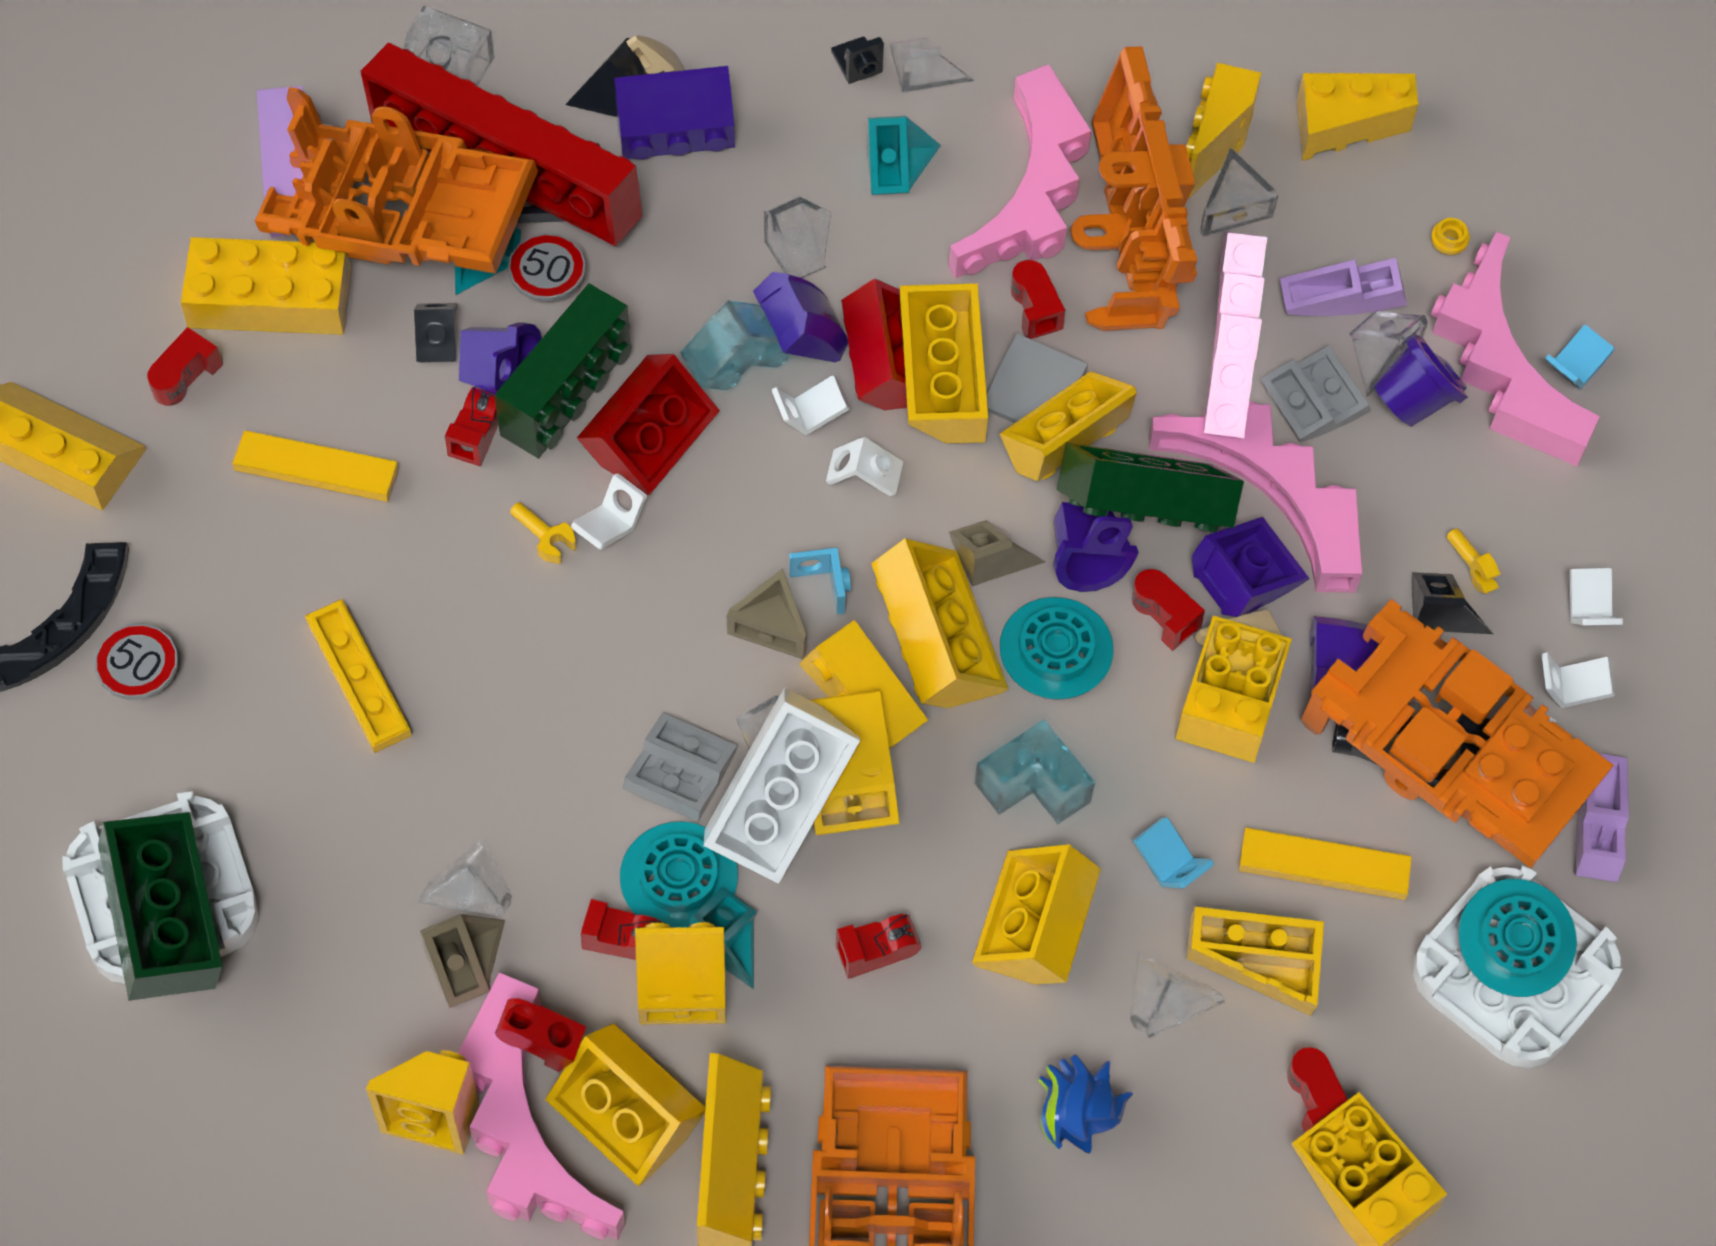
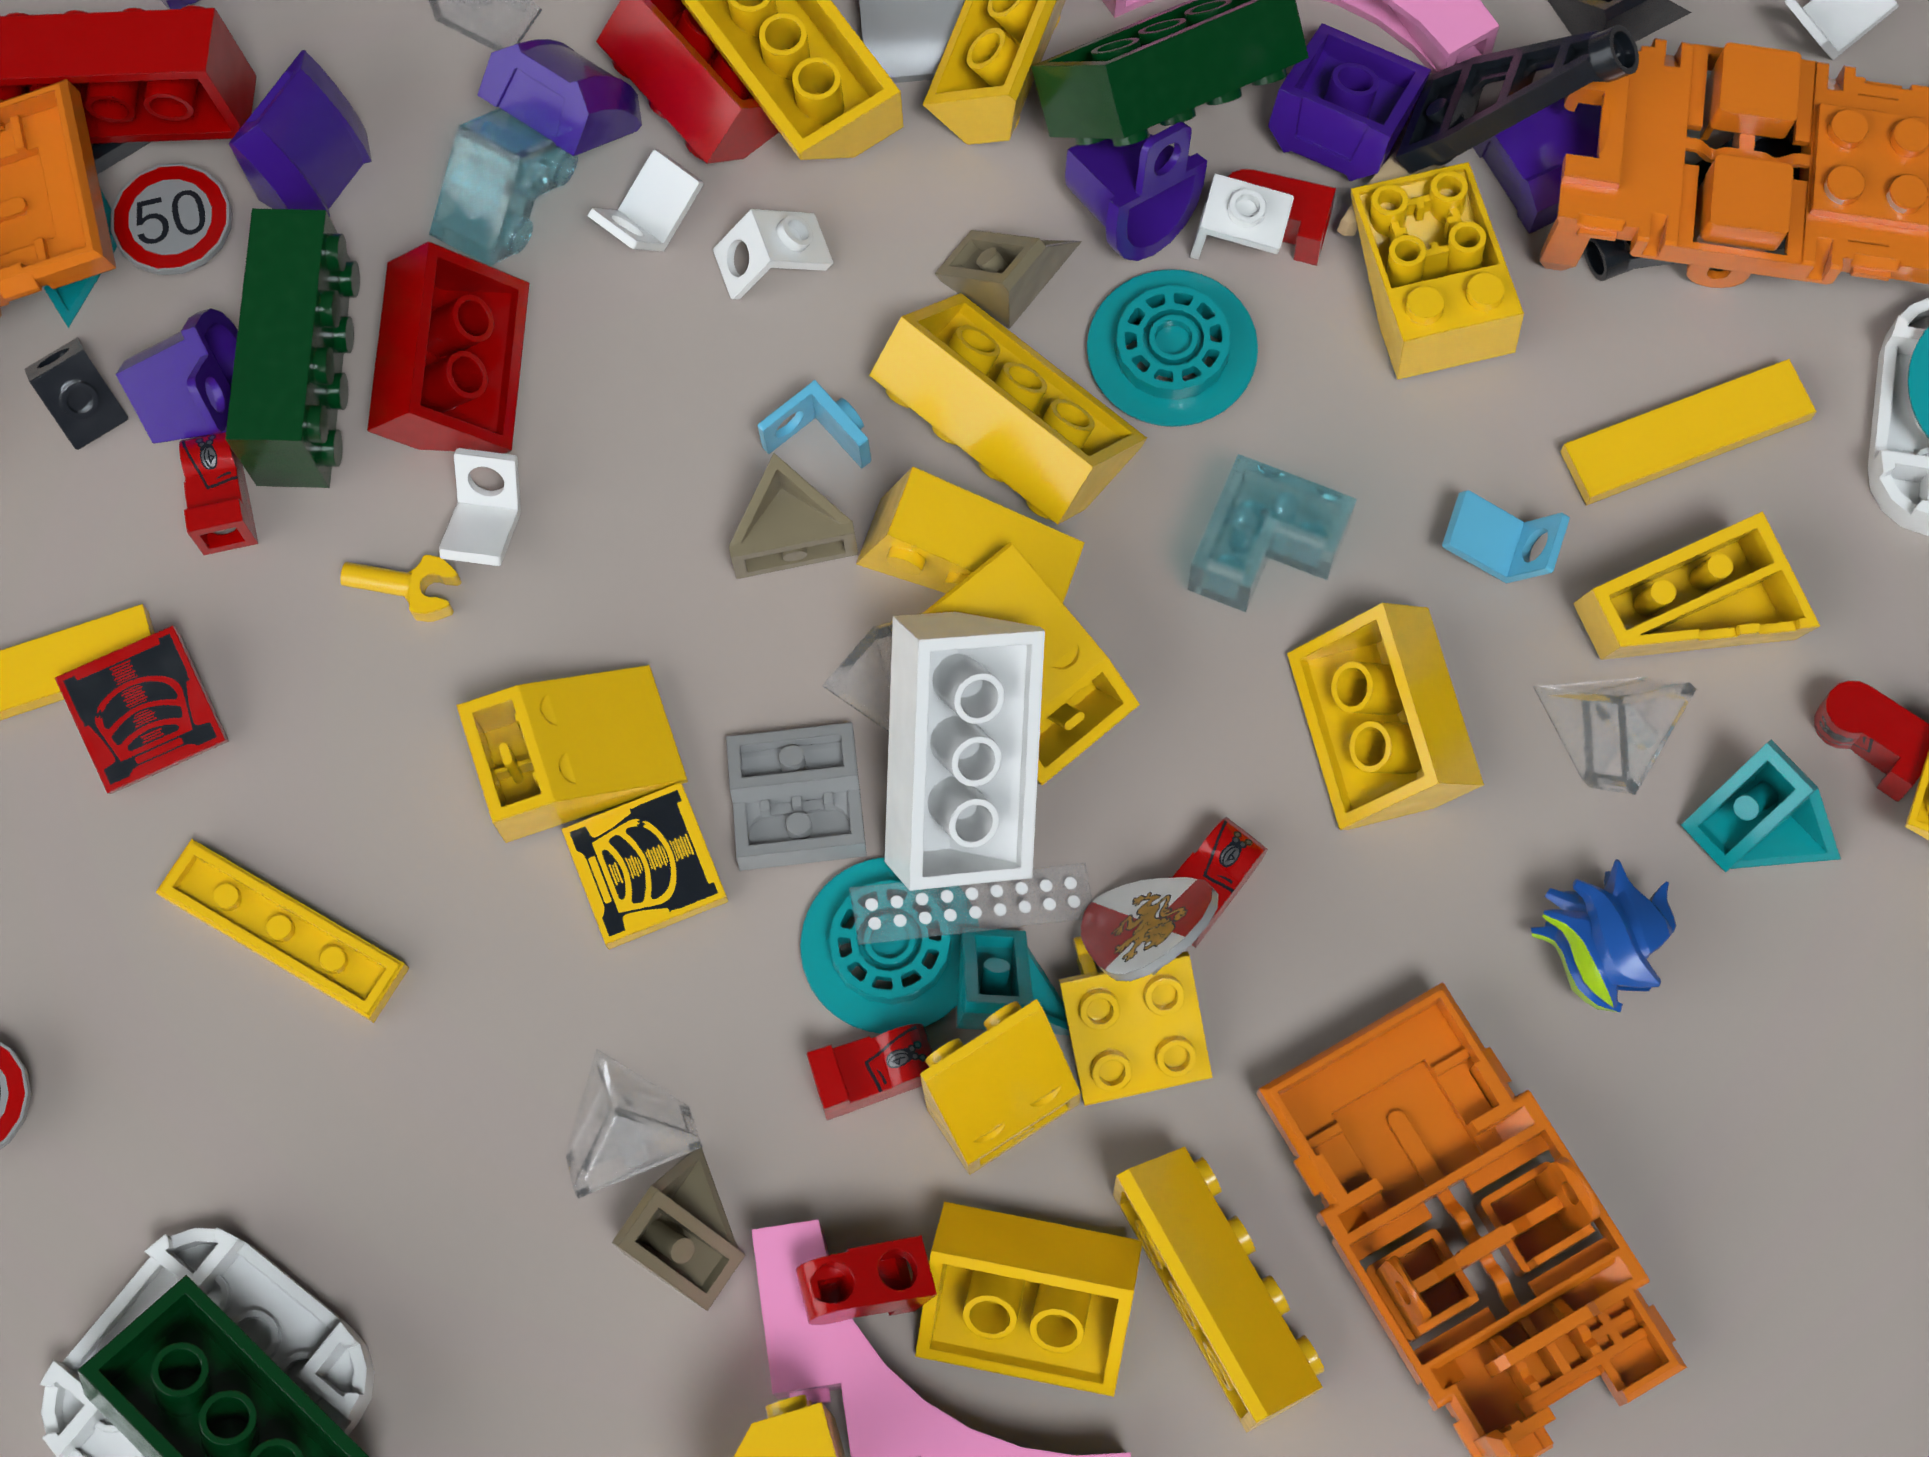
camera: 25 degrees left, 10 degrees up
(360, 516) = (141, 709): none -> tile
(572, 667) = (569, 748): none -> yellow slope
(573, 755) = (644, 865): none -> tile
(643, 264) = (302, 141): none -> dark purple slope
(776, 899) = (896, 913): none -> clear sticker
(782, 994) = (1134, 1032): none -> yellow plate
(818, 934) = (1146, 924): none -> shield
(1140, 595) = (1243, 215): none -> white bracket
(1217, 1096) = (1764, 816): none -> teal slope
(1333, 606) = (1445, 109): none -> black plate

